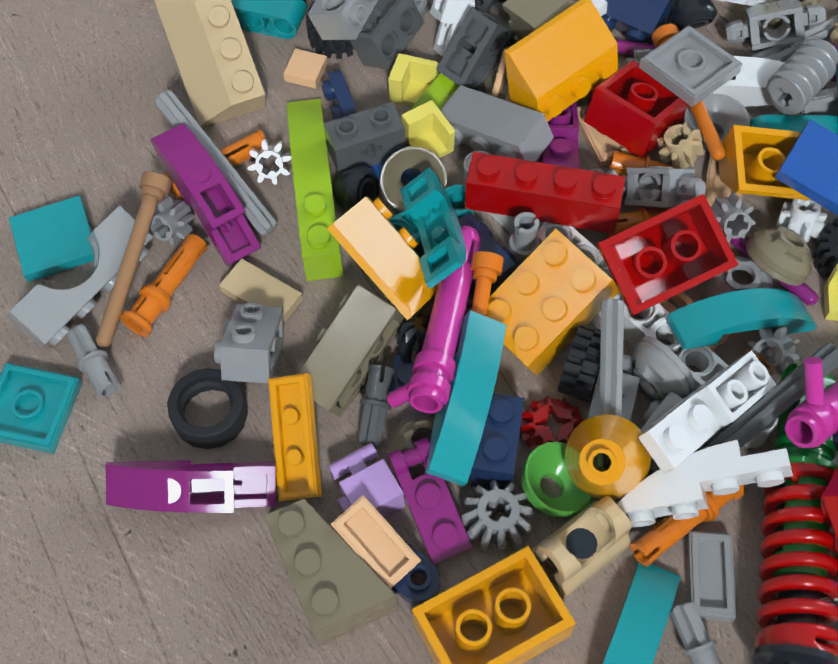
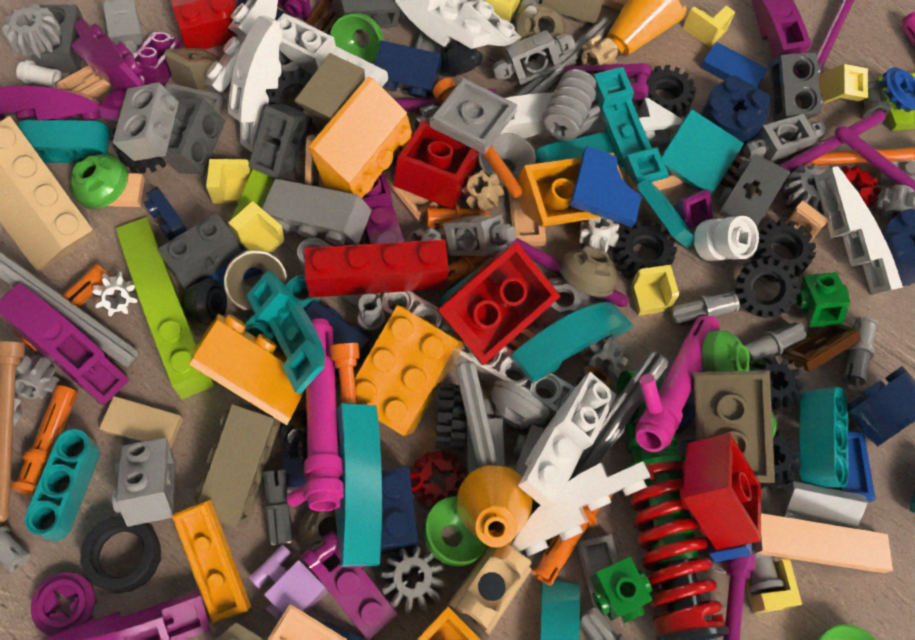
camera: 25 degrees left, 5 degrees up
(124, 434) = (47, 600): none -> magenta gear
(169, 345) = (68, 502): none -> teal beam
(285, 57) = (103, 185): none -> bright green piece
(726, 588) = (632, 582): none -> green brick
(733, 215) = (542, 248): light grey gear -> none

